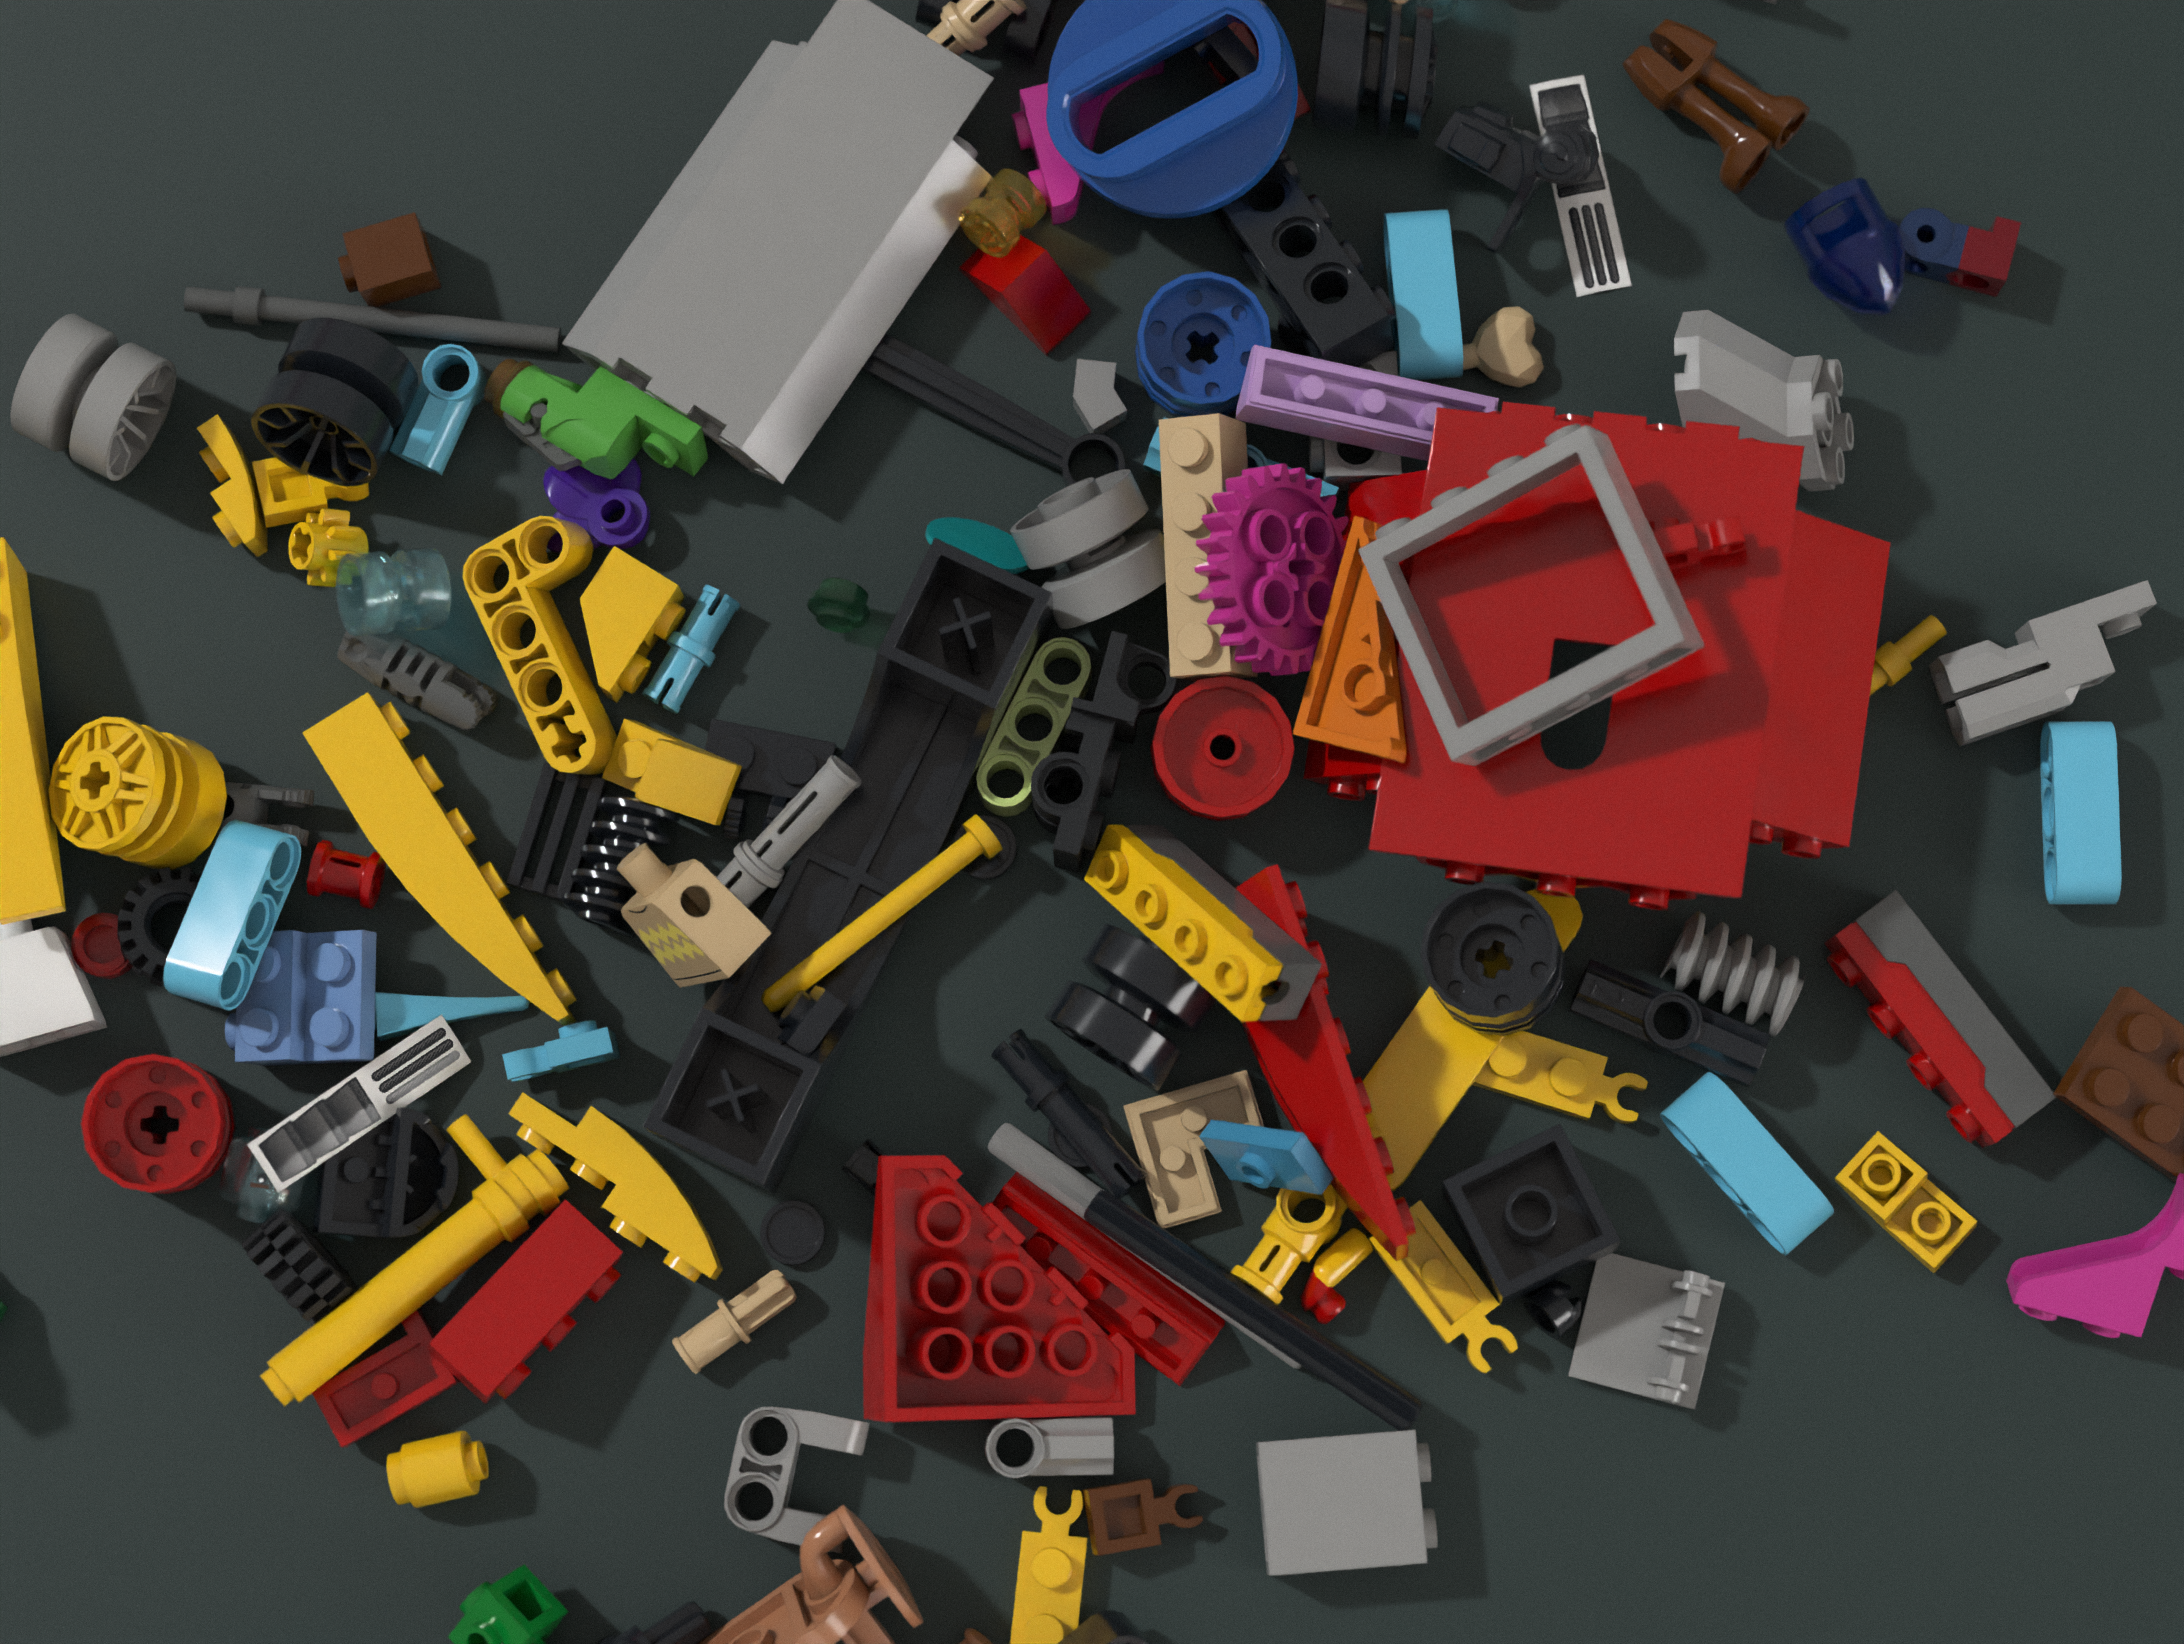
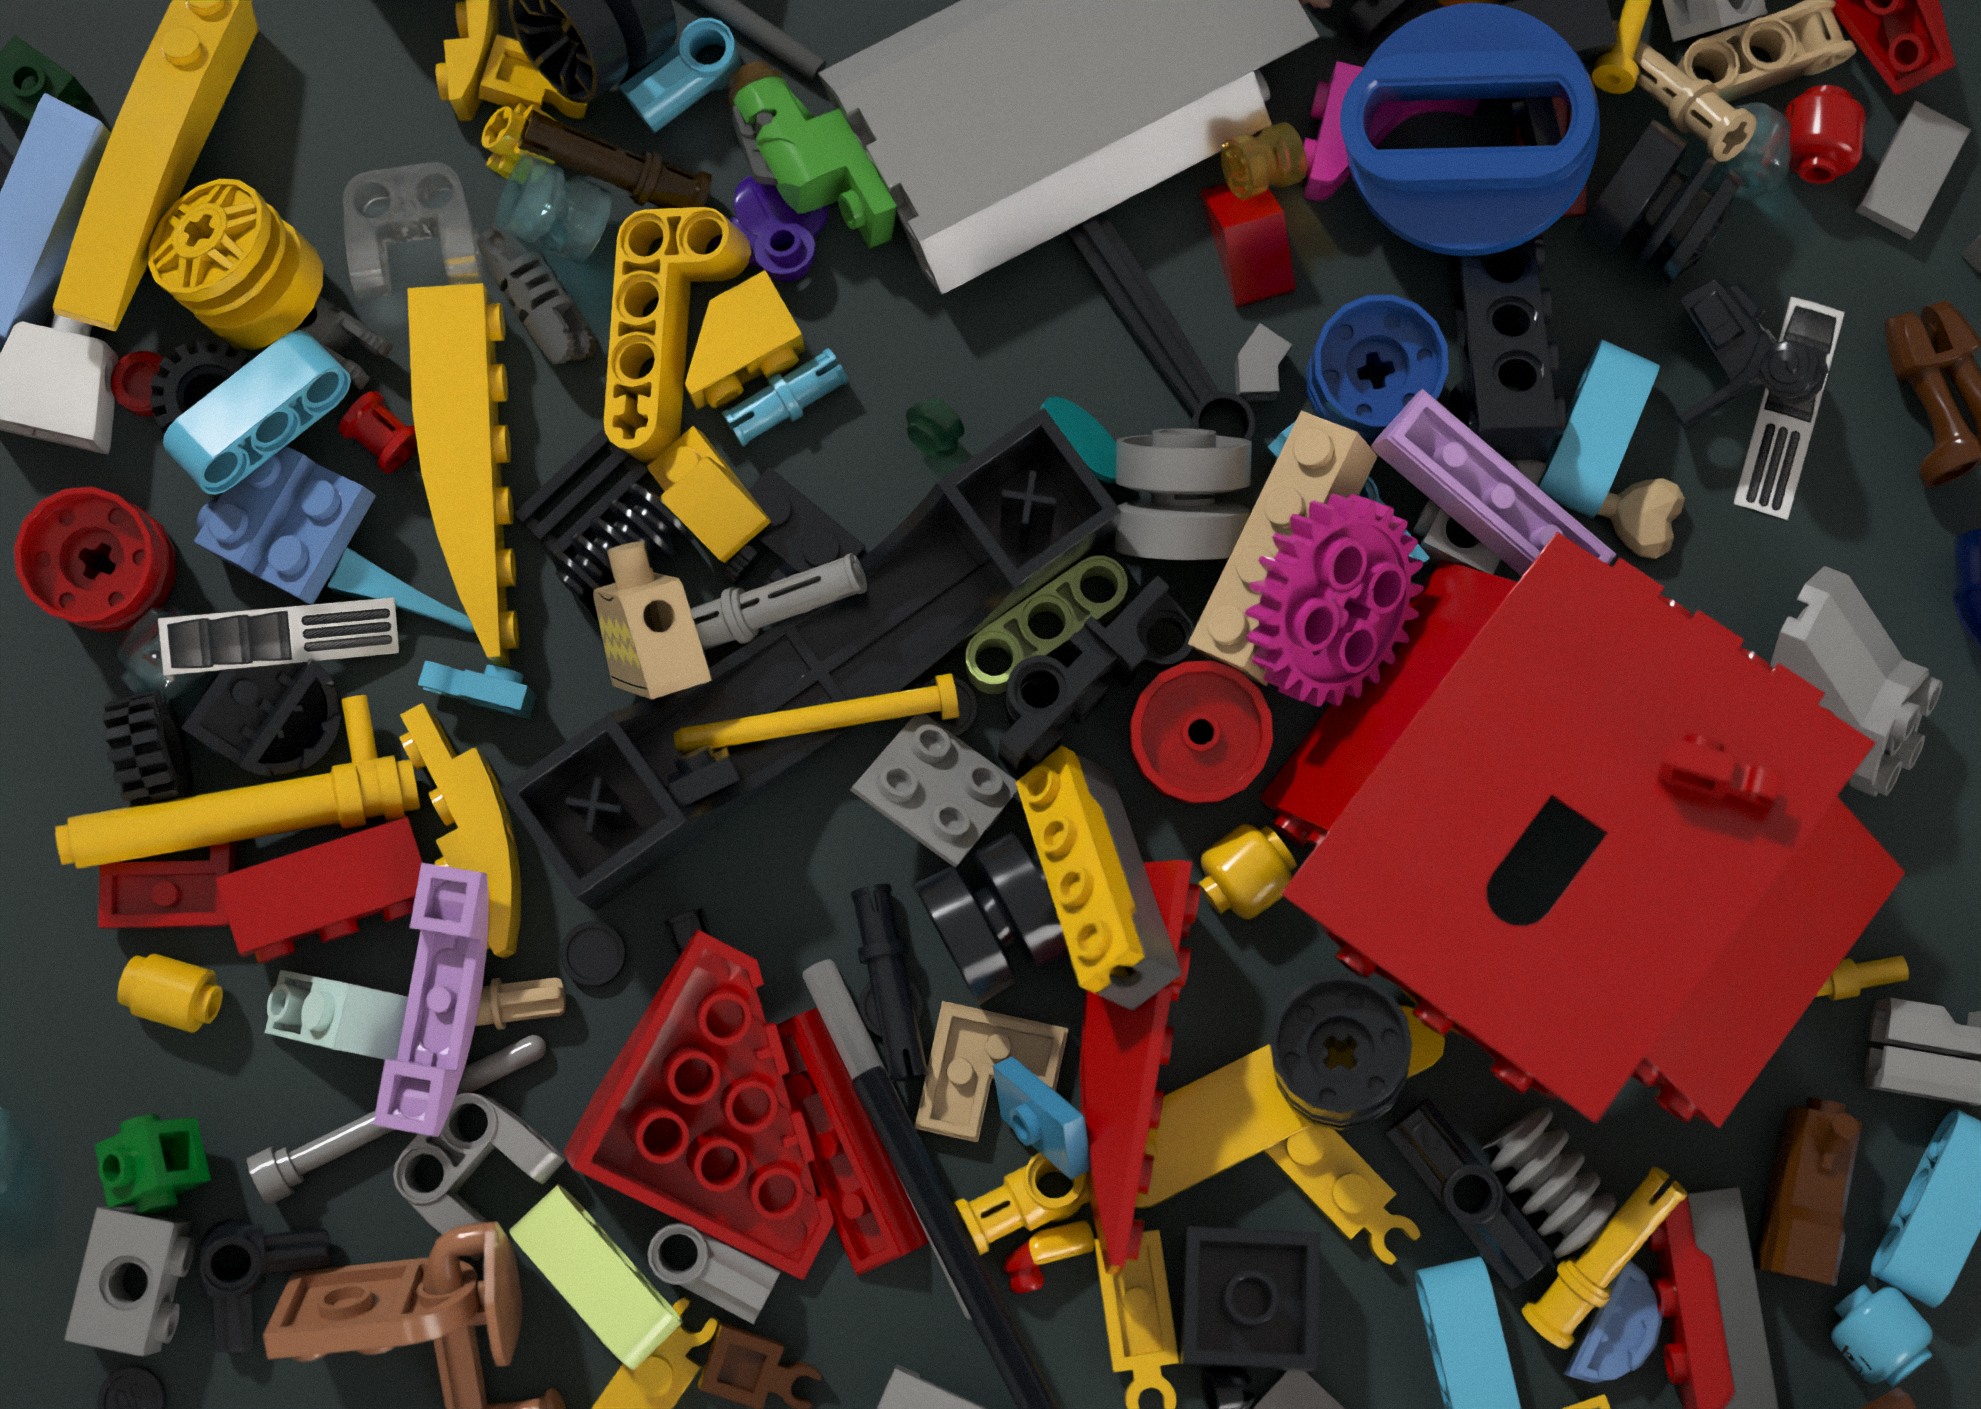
camera: 25 degrees right, 0 degrees up
(265, 671) = (408, 221): none -> clear piece
(455, 520) = (643, 176): none -> dark brown pin
(599, 1407) = (336, 1015): none -> light aqua slope
(625, 1568) = (279, 1171): none -> light grey piece
(685, 1343) = (441, 1002): none -> lavender slope
(953, 1509) = (595, 1277): none -> yellowish green beam
(1018, 921) = (936, 788): none -> light grey hinge
(1327, 848) = (1246, 871): none -> yellow head
(1354, 678) = (1352, 731): orange wing -> none
(1581, 686) = (1555, 852): light grey window -> none
(1809, 1041) = (1585, 1280): none -> yellow pin
(1860, 1067) = (1620, 1332): none -> medium blue plate
(1959, 863) = (1809, 1193): none -> reddish brown piece
(2084, 950) = (1881, 1335): none -> medium azure head

